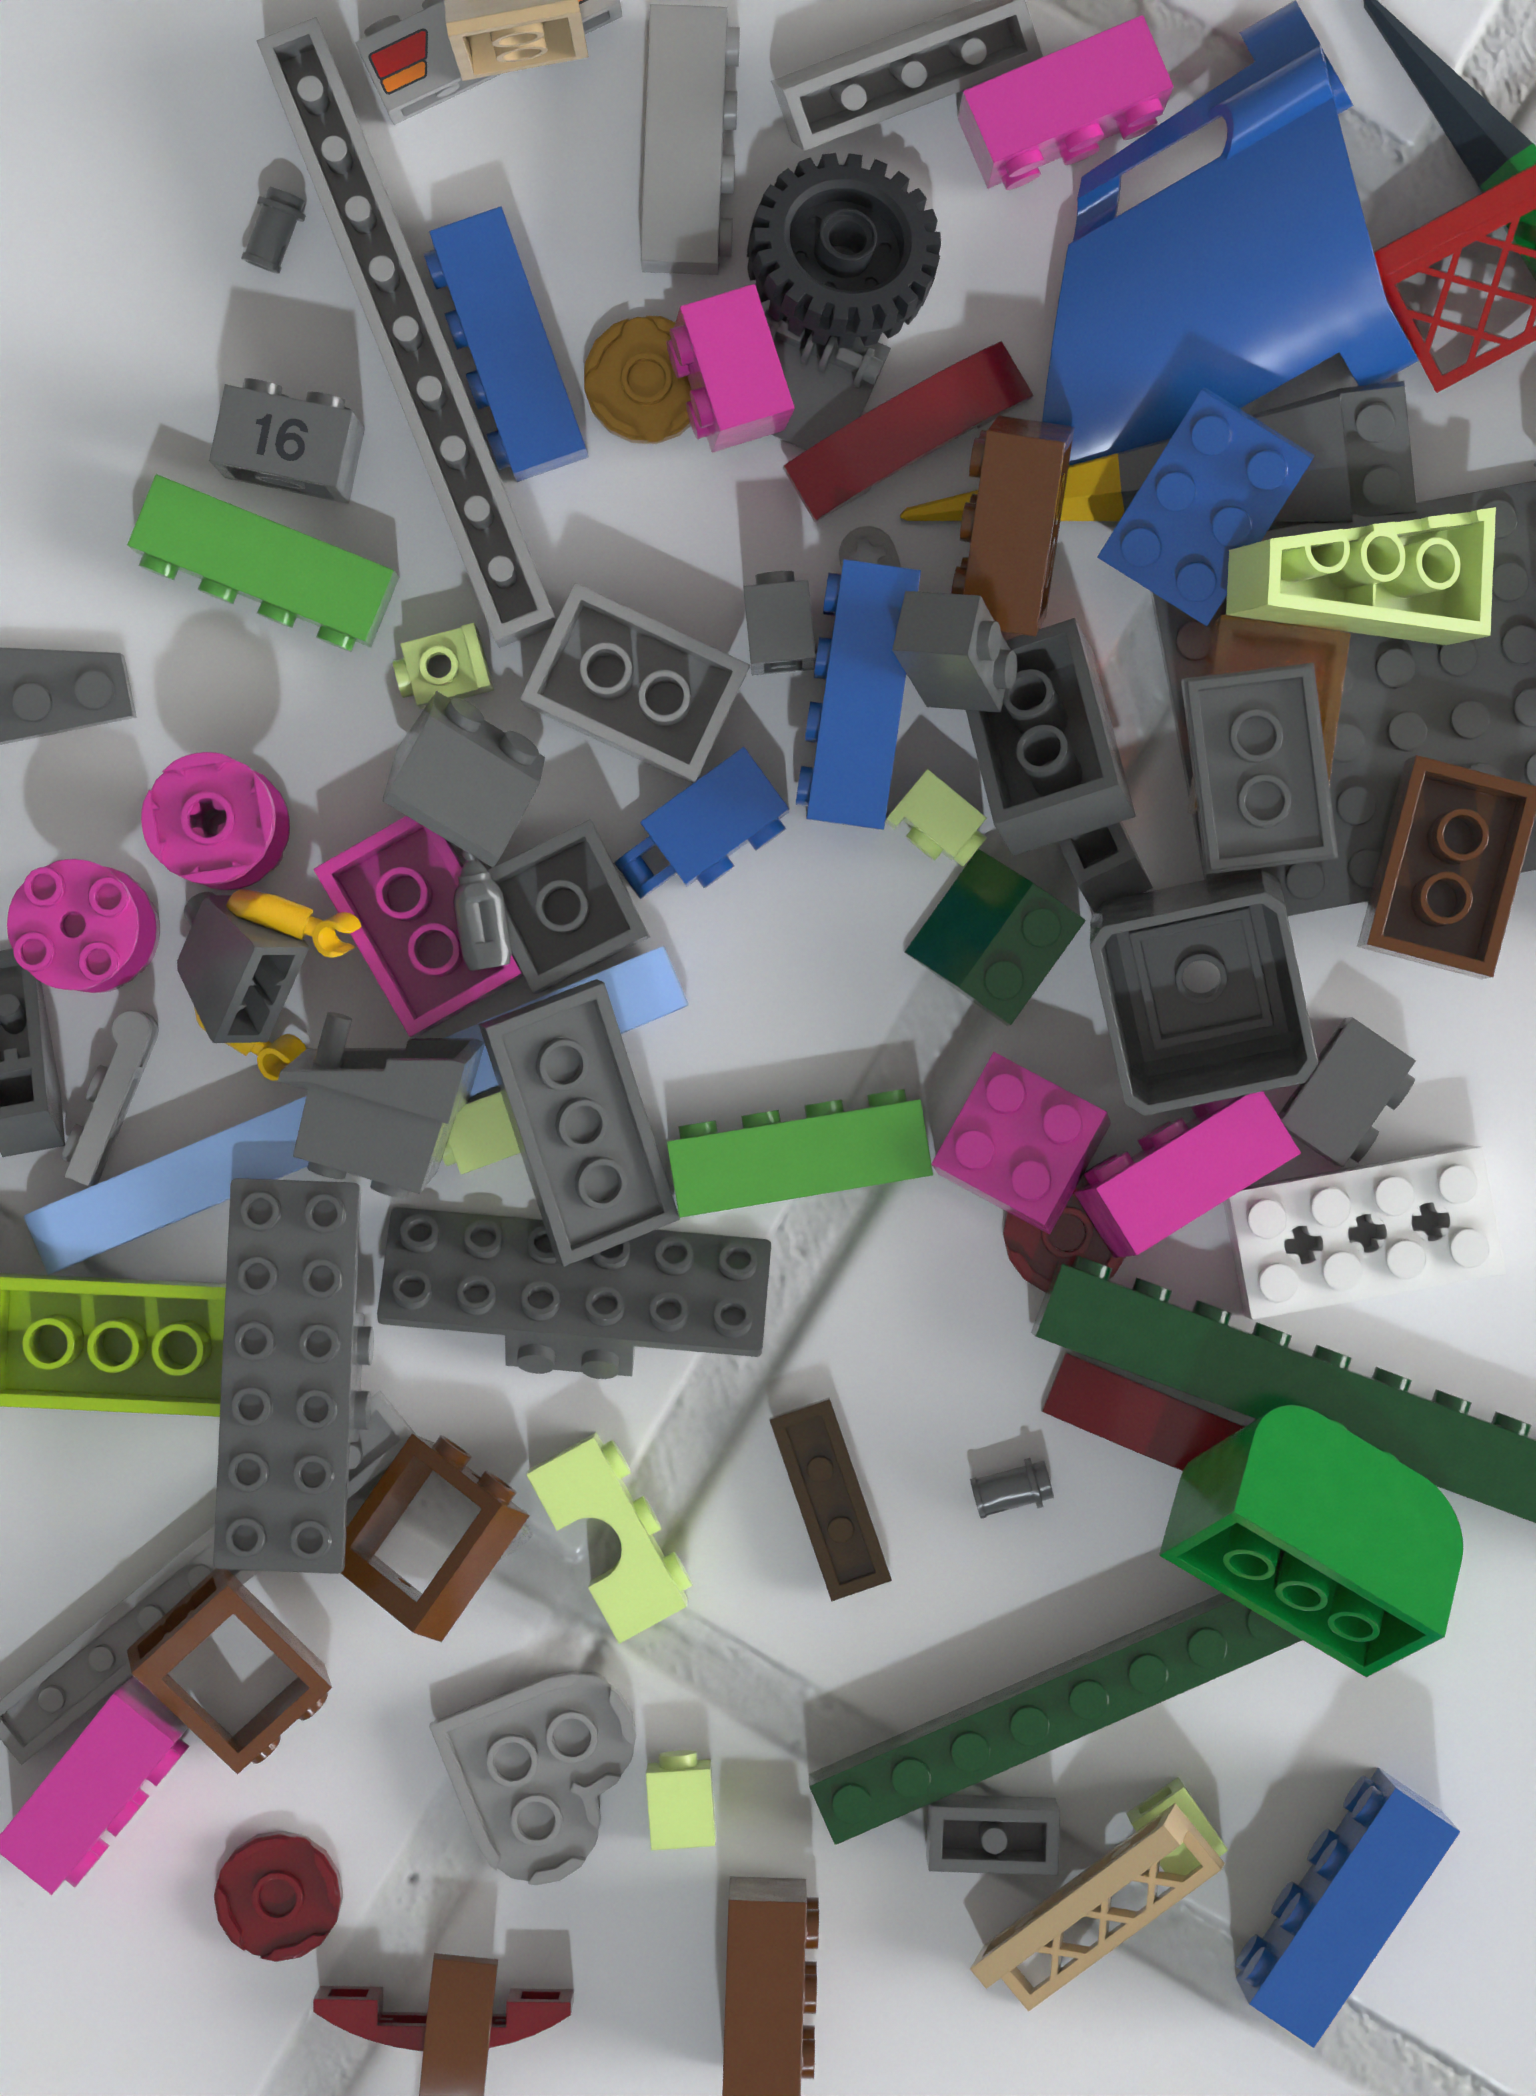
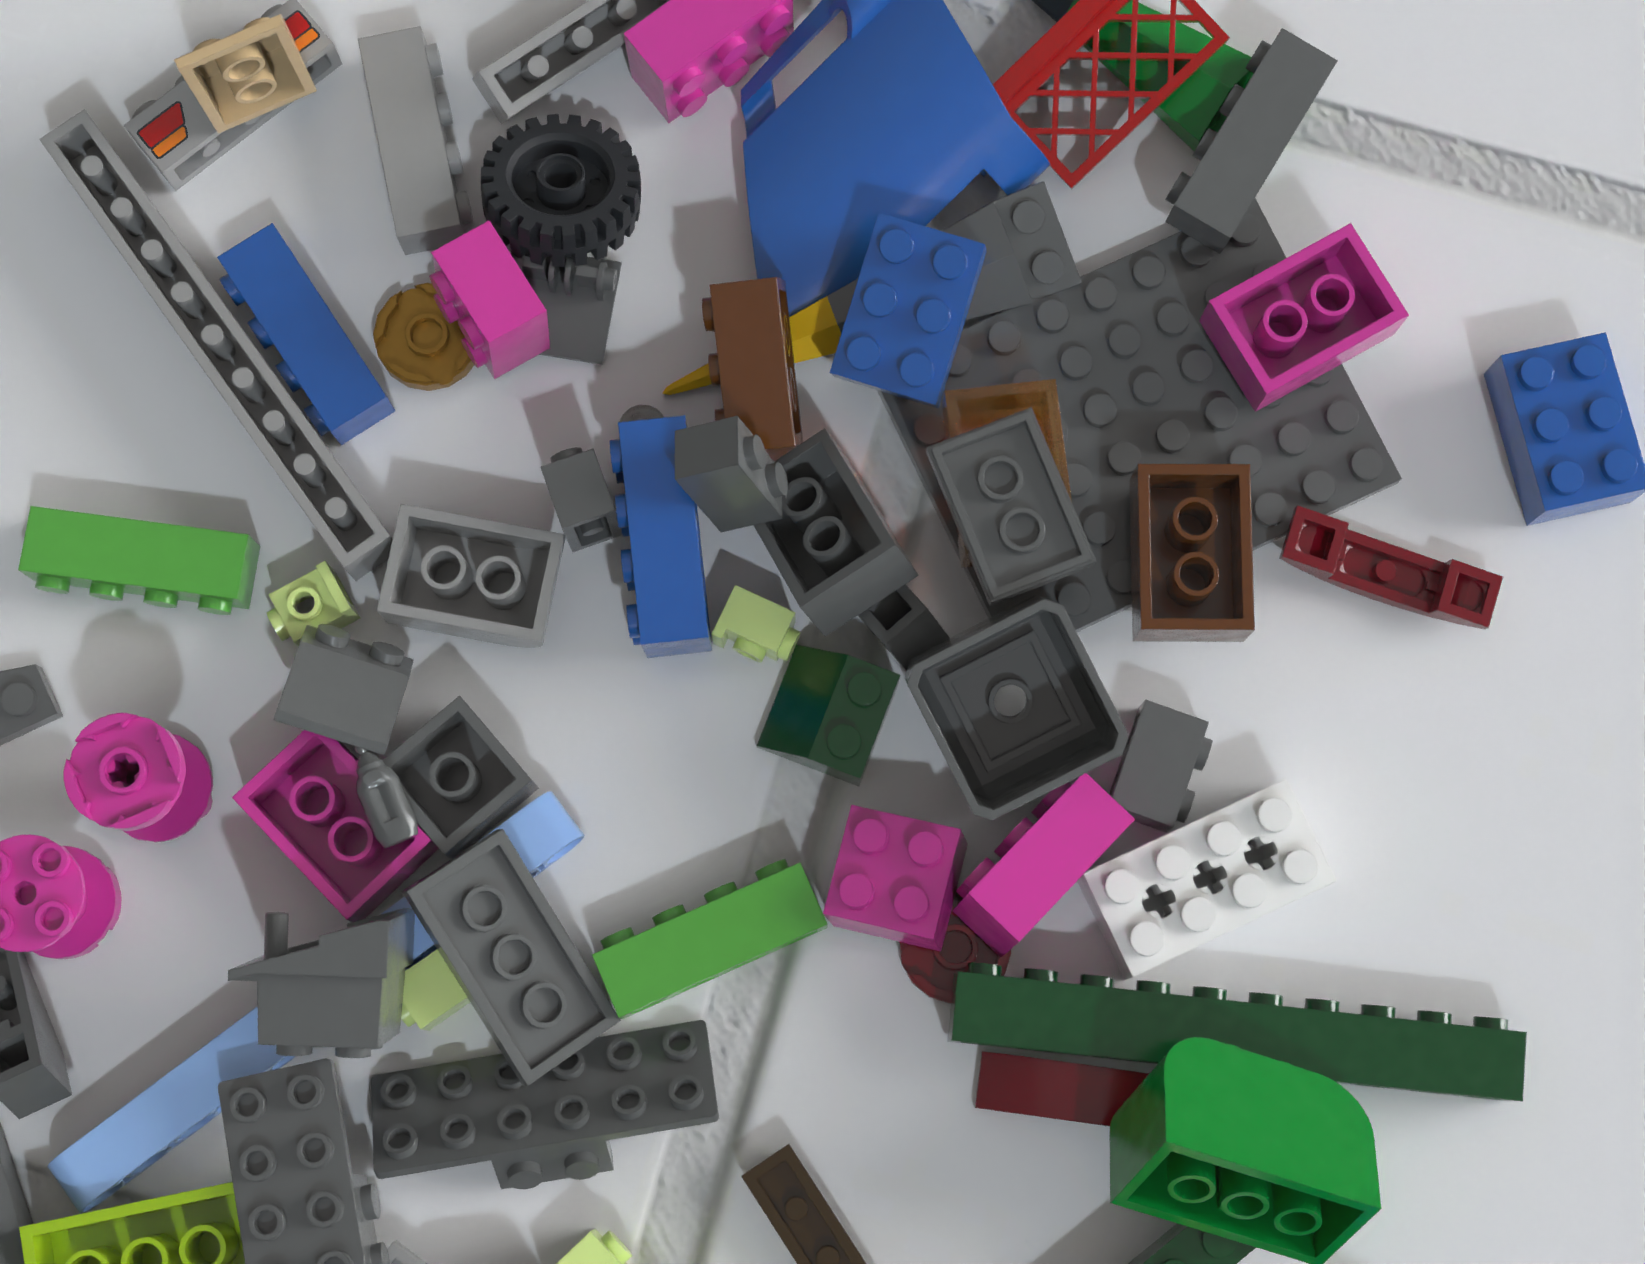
camera: 20 degrees left, 10 degrees down
(112, 1094) = (104, 1041): light grey plate -> none
(244, 963) = (192, 893): dark grey torso -> none
(273, 229) = (92, 292): dark grey pin -> none
(287, 441) = (135, 452): dark grey brick -> none
(707, 825) = (563, 681): blue brick -> none
(907, 429) = (645, 322): dark red slope -> none
(1012, 1488) = (967, 1182): dark grey pin -> none
(1382, 579) = (1066, 331): yellowish green wedge -> none

